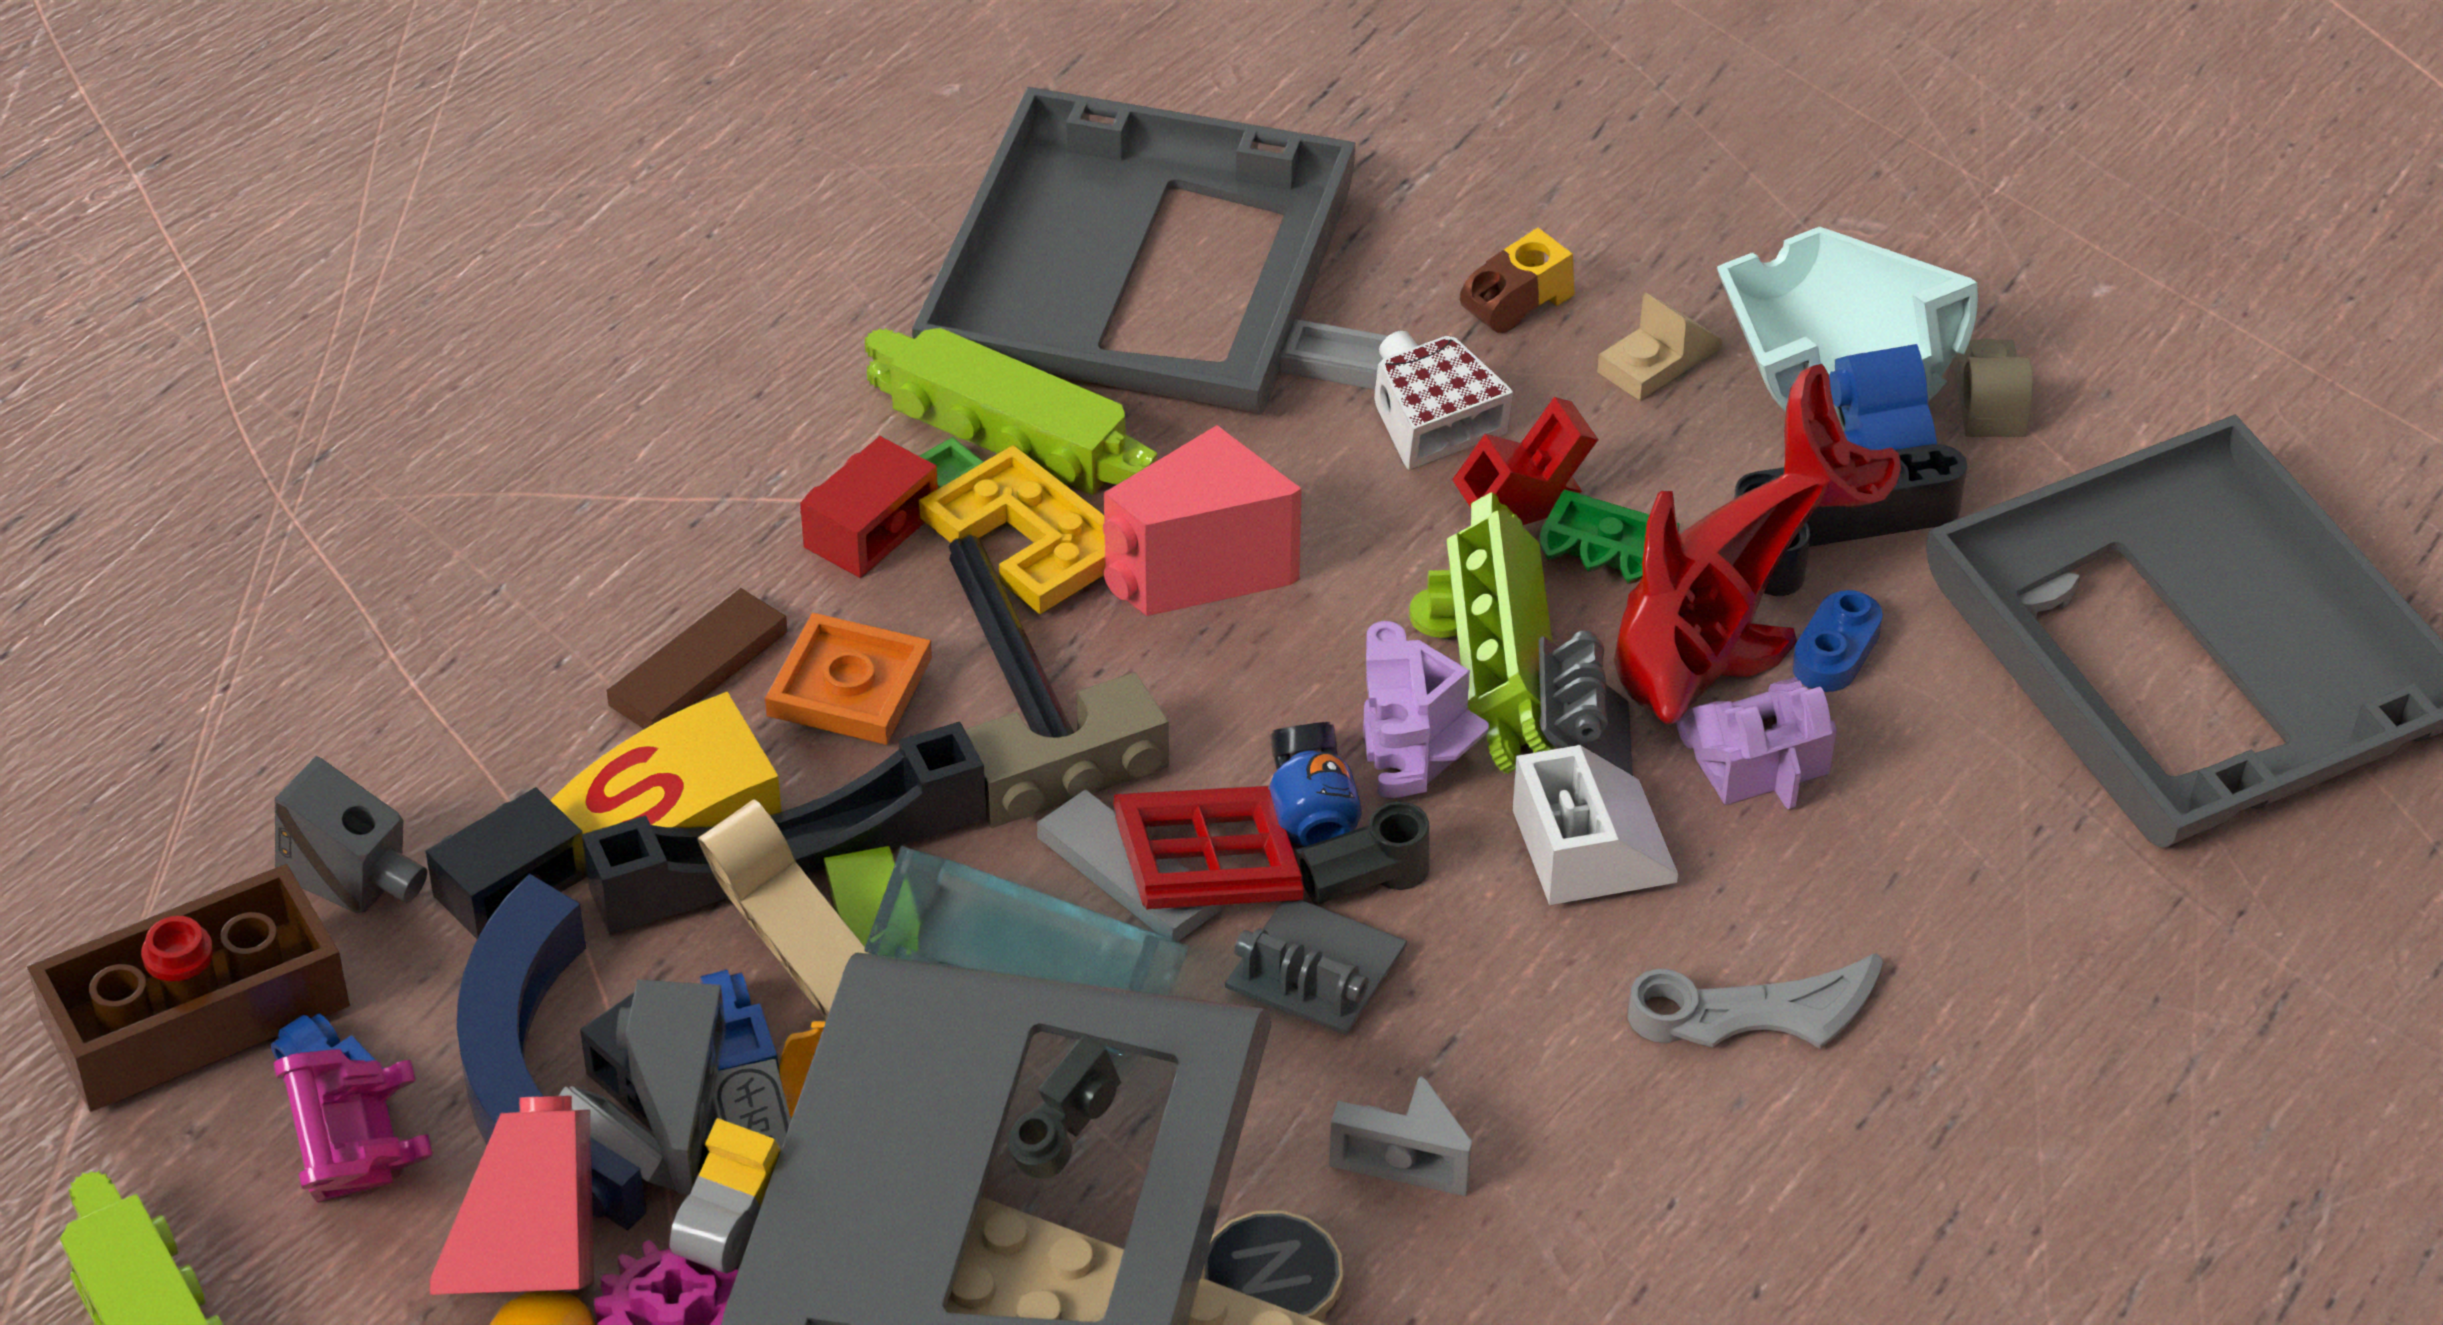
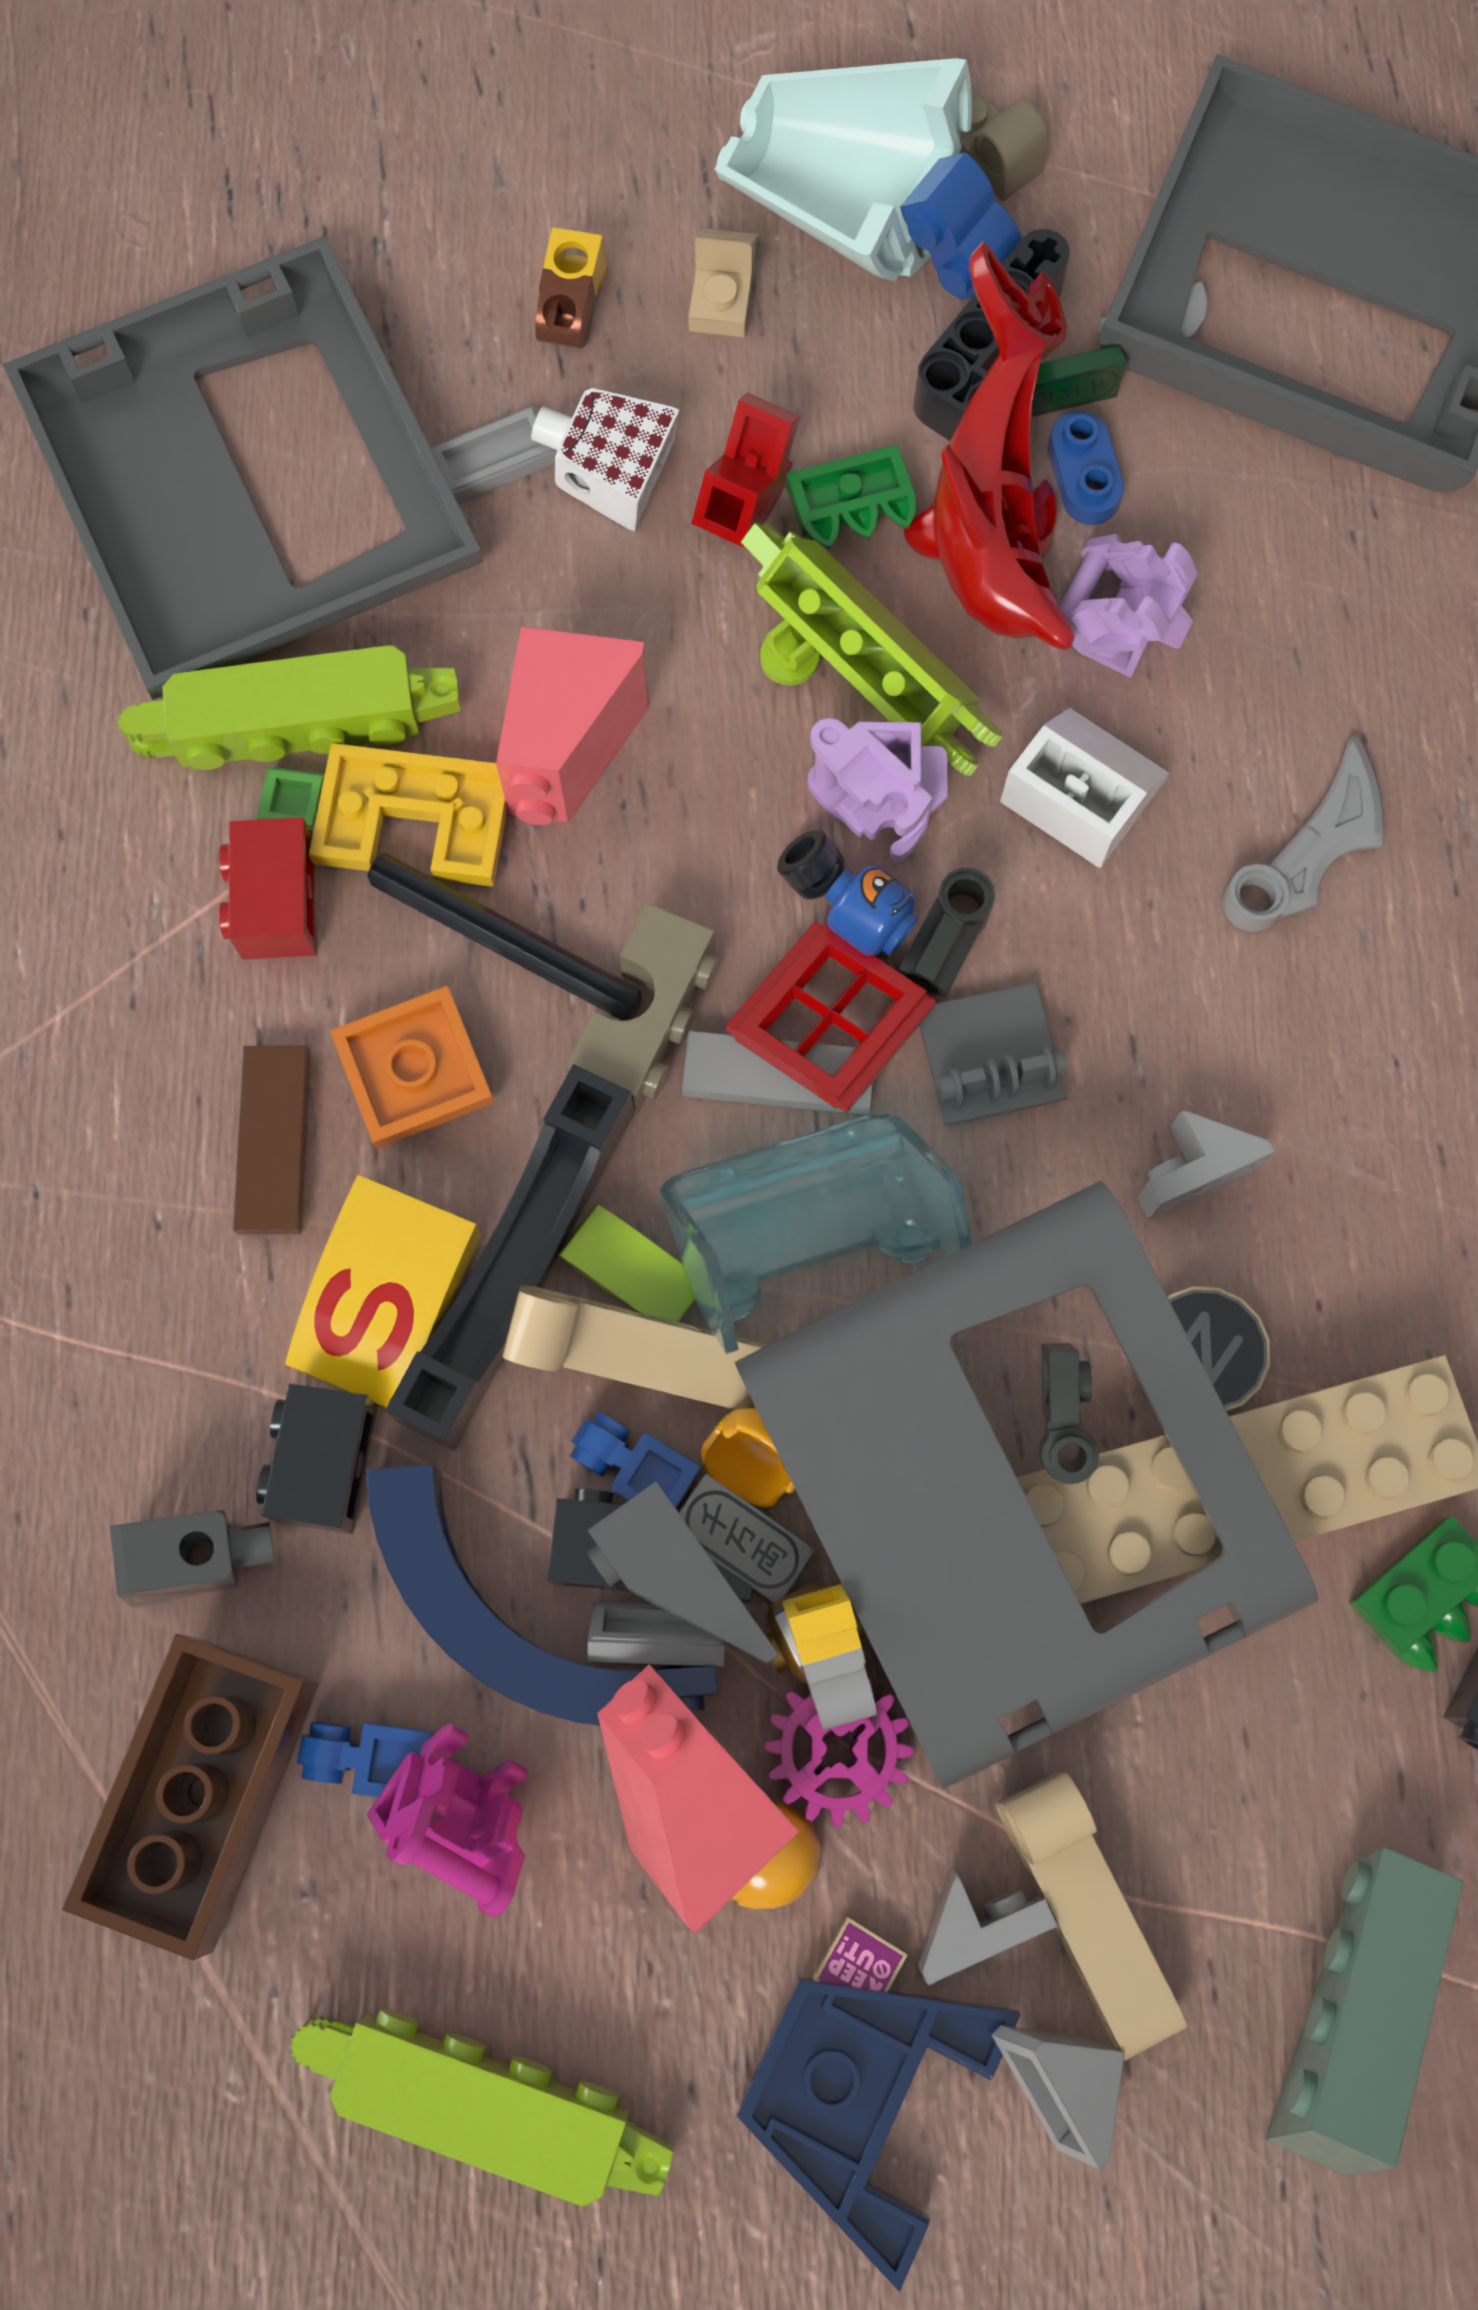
camera: 40 degrees left, 30 degrees up
(176, 949) = (182, 1802): red plate -> none
(1579, 704) = (1007, 692): dark grey hinge -> none
(1872, 567) = (1078, 380): none -> dark green tile

